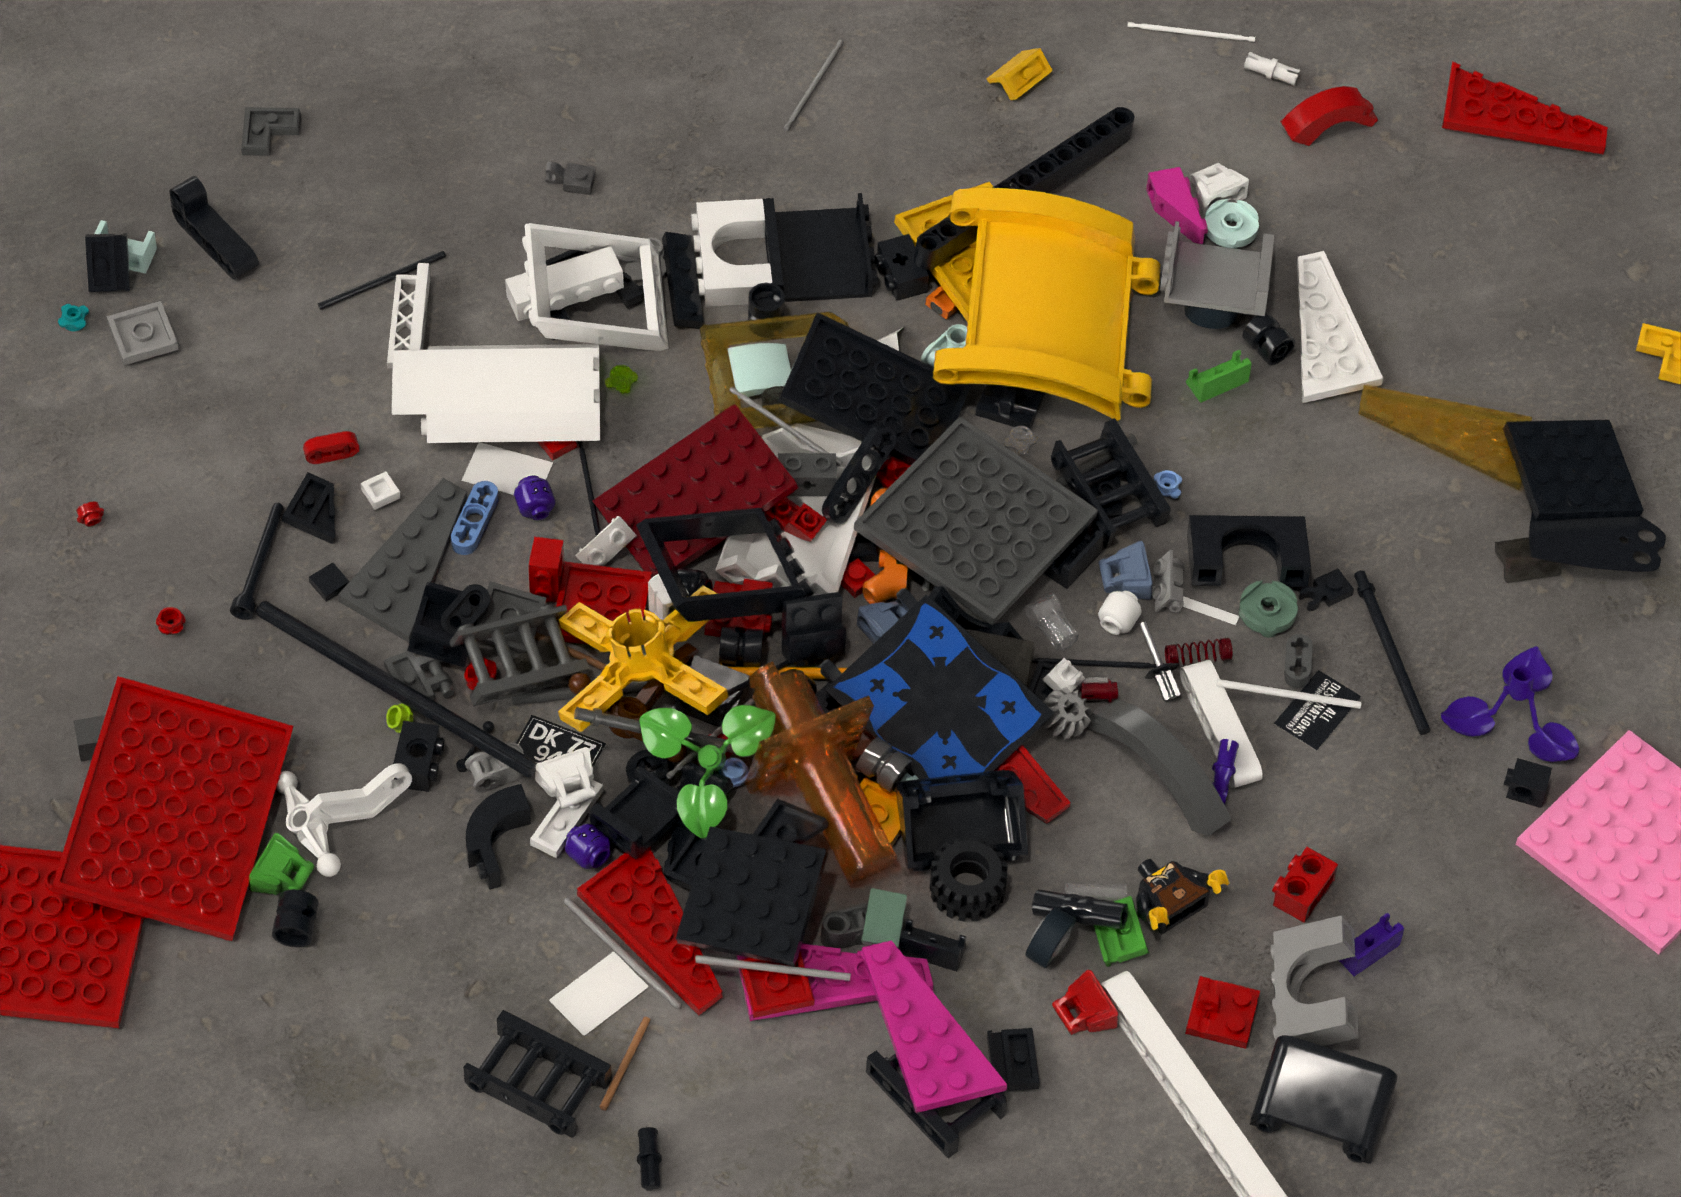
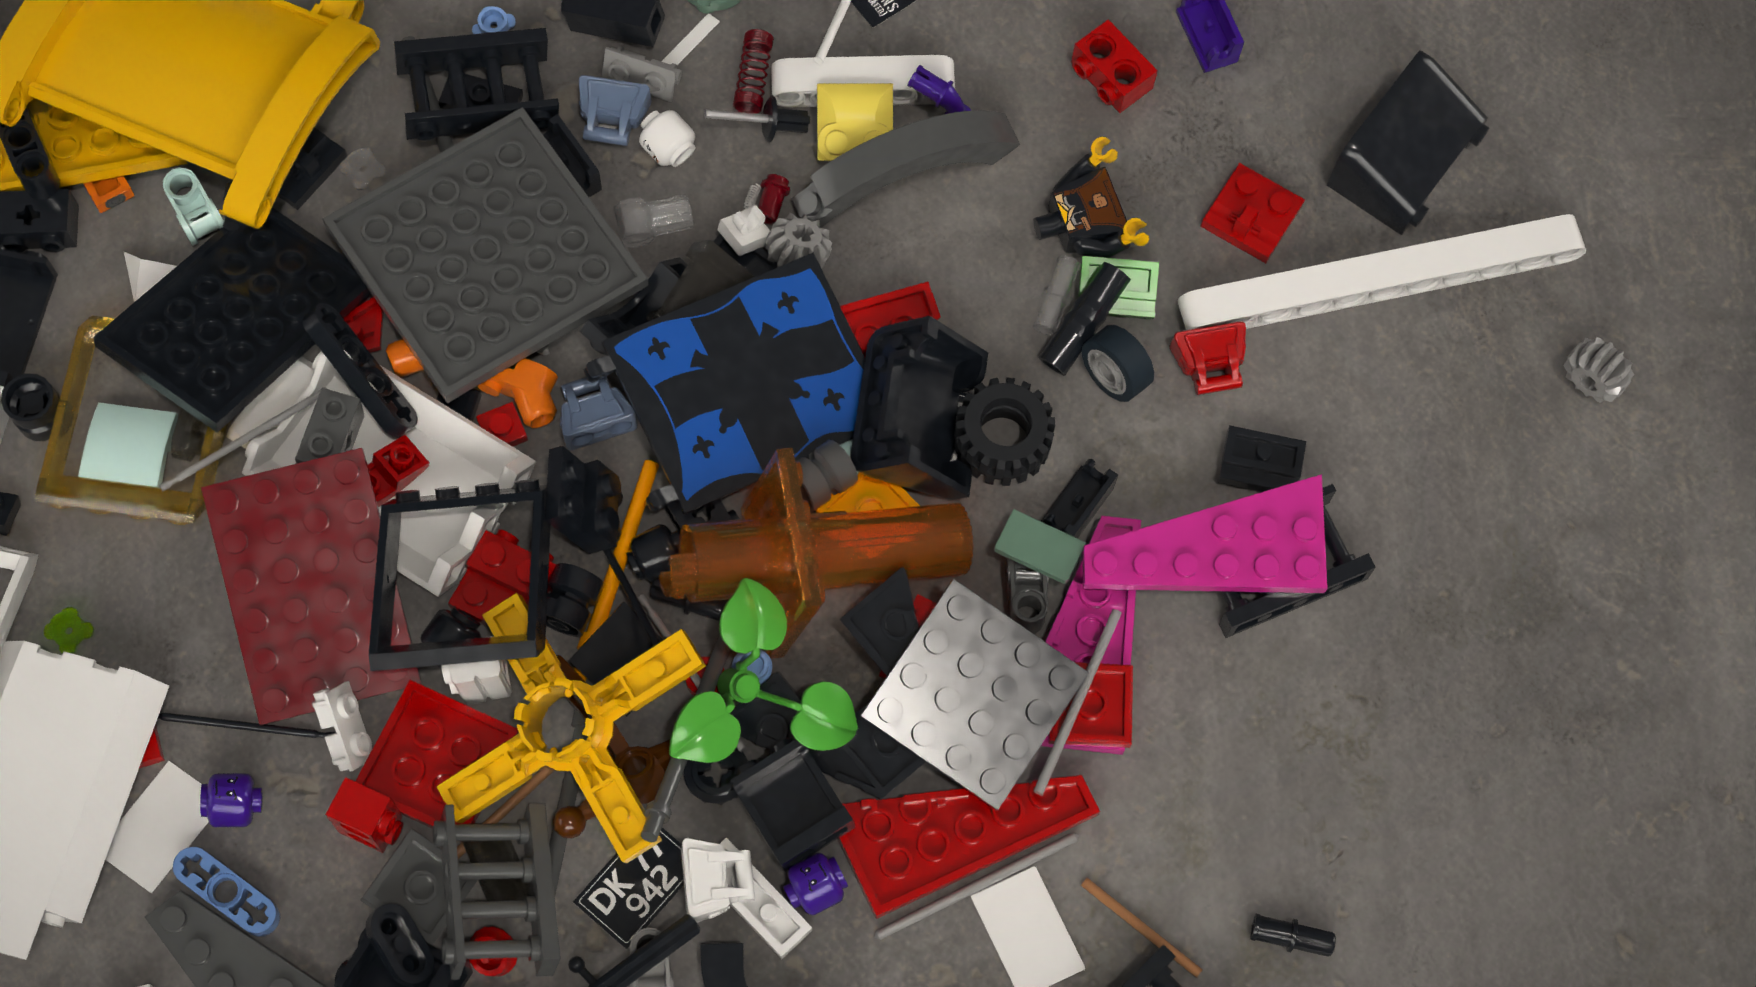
camera: 75 degrees left, 15 degrees up
(1098, 663) = (727, 183): black piece -> none
(1185, 717) = (851, 115): none -> light yellow slope
(1295, 955) = (1302, 136): light grey arch -> none

